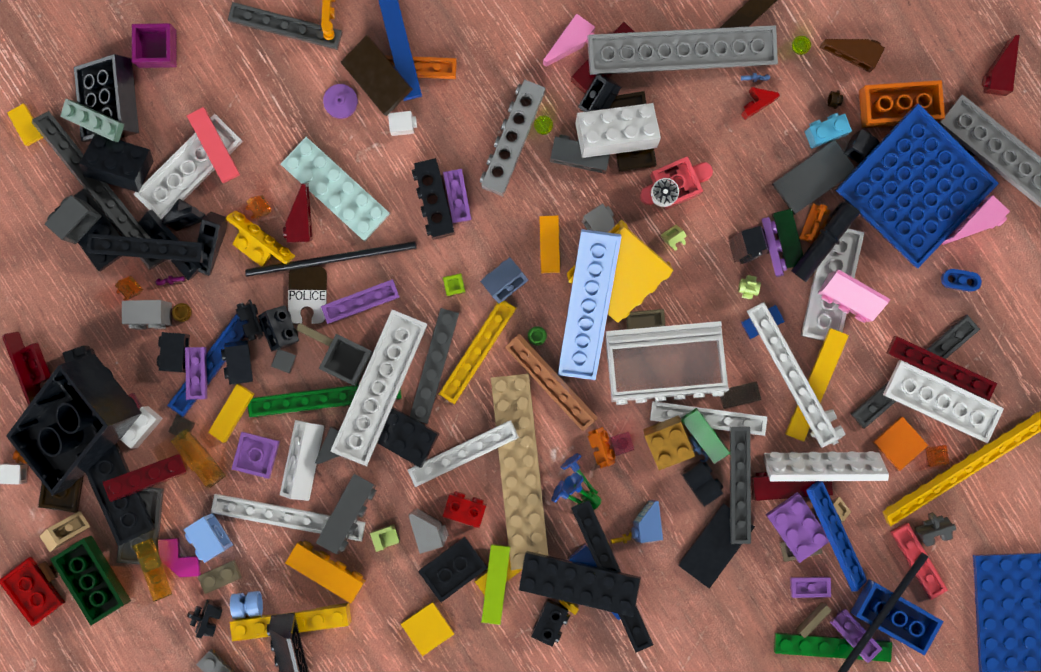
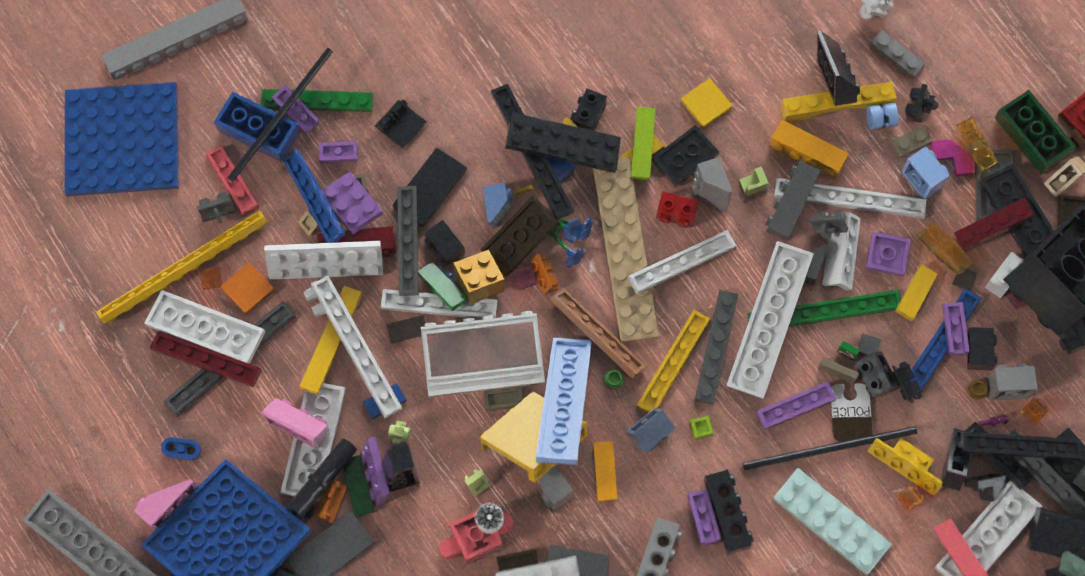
camera: 175 degrees right, 15 degrees down
(238, 362) = (914, 339): black brick -> none
(299, 221) = (865, 480): dark red slope -> none
(304, 355) = (848, 350): none -> green tile
(311, 484) = (828, 224): none -> dark grey hips
(346, 360) = (805, 344): dark grey piece -> none
(407, 437) = (737, 274): black plate -> none
(625, 485) = (520, 235): none -> dark brown tile
(745, 617) = (400, 123): none -> black hinge
(813, 620) = (336, 122): dark tan tile -> none

